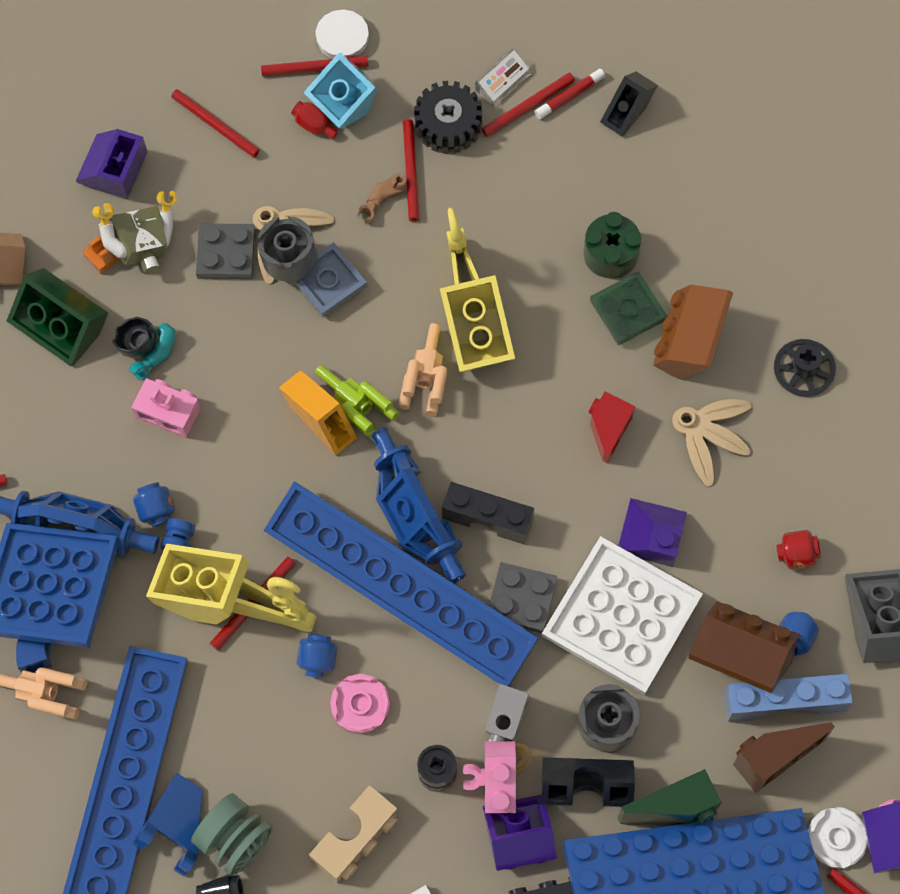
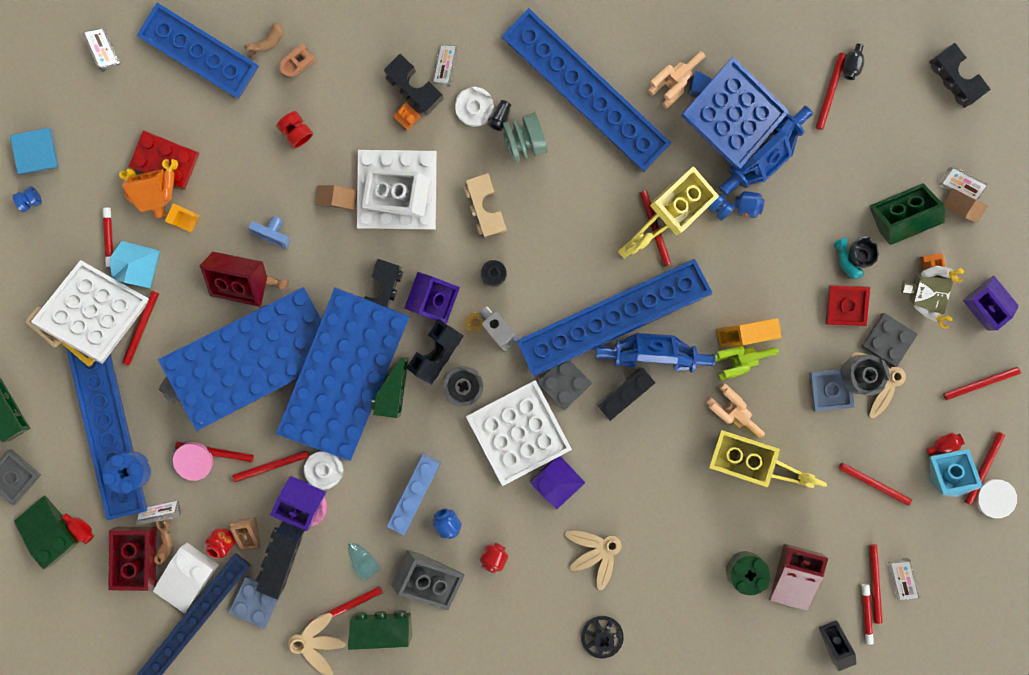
camera: 120 degrees right, 20 degrees up
(166, 407) = (807, 245): bright pink brick -> none
(176, 819) = (555, 113): blue flag -> none
(212, 320) = (847, 305): none -> red plate
(317, 655) = (601, 245): blue head -> none
(360, 704) = (559, 254): bright pink tile -> none
(382, 191) = (871, 460): medium nougat arm -> none
(448, 130) = (890, 521): black wheel -> none
(497, 777) = (467, 302): bright pink brick -> none
(577, 189) = (798, 577): none -> slope
(609, 422) = (637, 499): red slope -> none
(628, 308) = (702, 557): clear green plate -> none
(692, 330) = (663, 585): dark orange slope -> none
(744, 646) = (454, 487): reddish brown slope -> none
(775, 752) = (385, 461): reddish brown slope -> none

